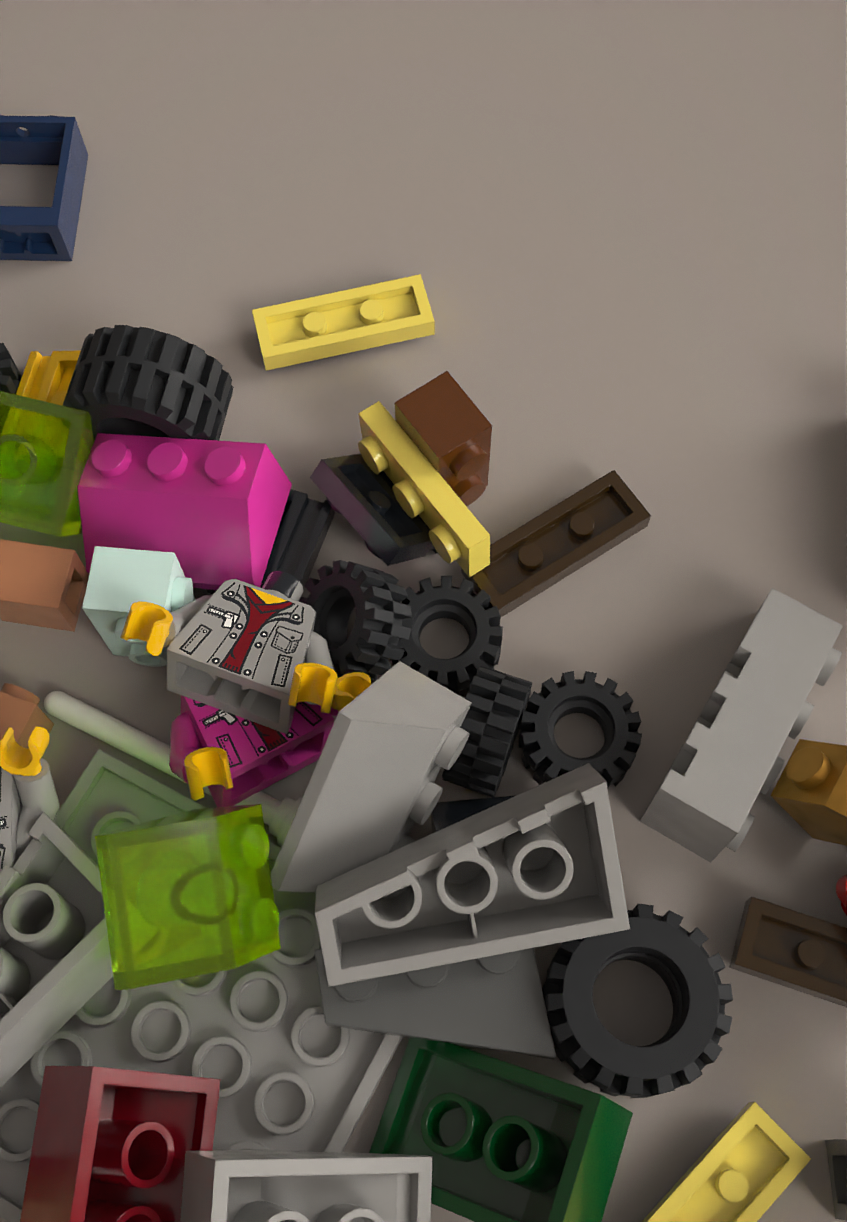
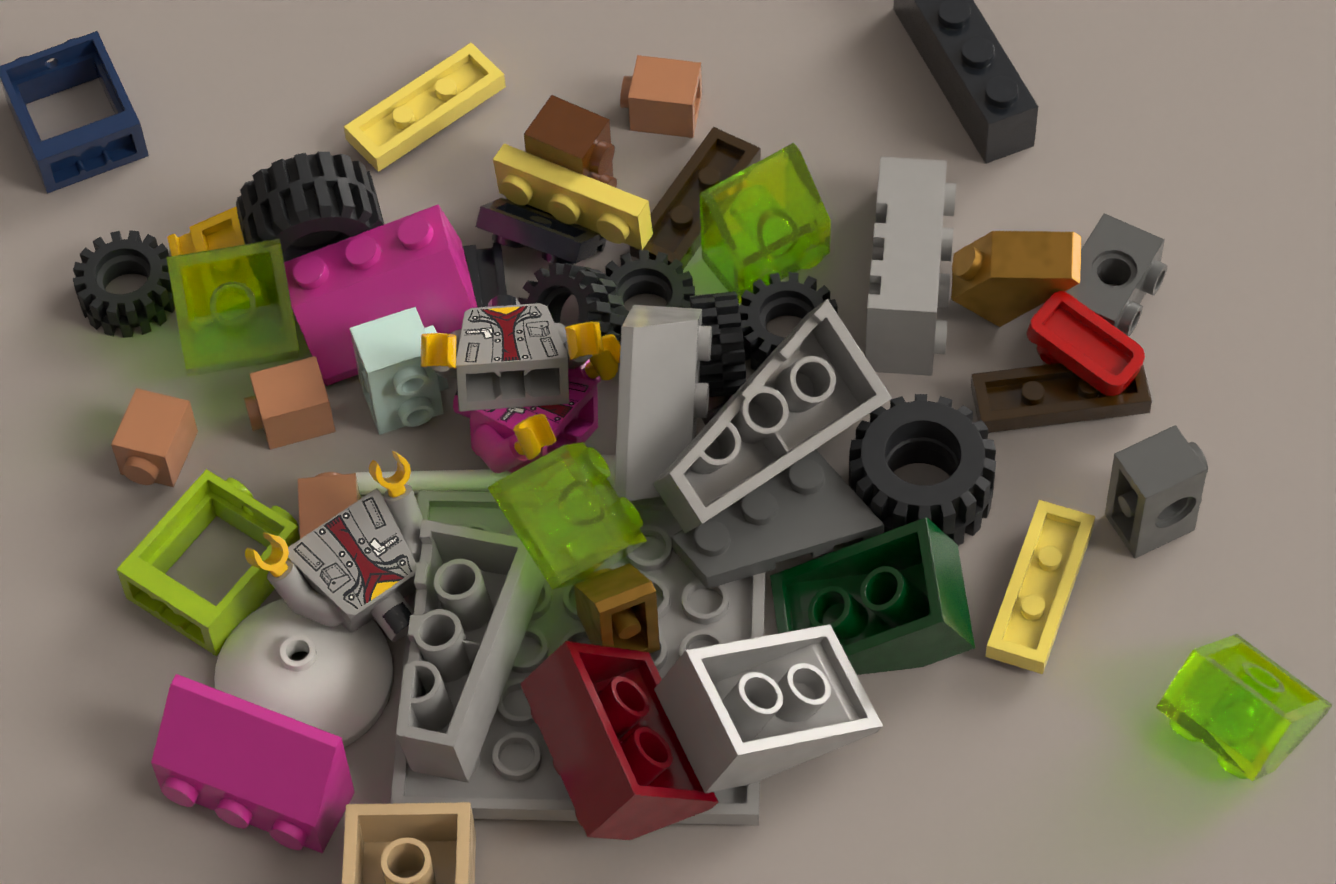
camera: 25 degrees left, 10 degrees down
(194, 1027) = (619, 609): none -> pearl gold slope
(581, 412) = (663, 96): none -> nougat brick
(609, 609) = (764, 222): none -> clear neon green slope

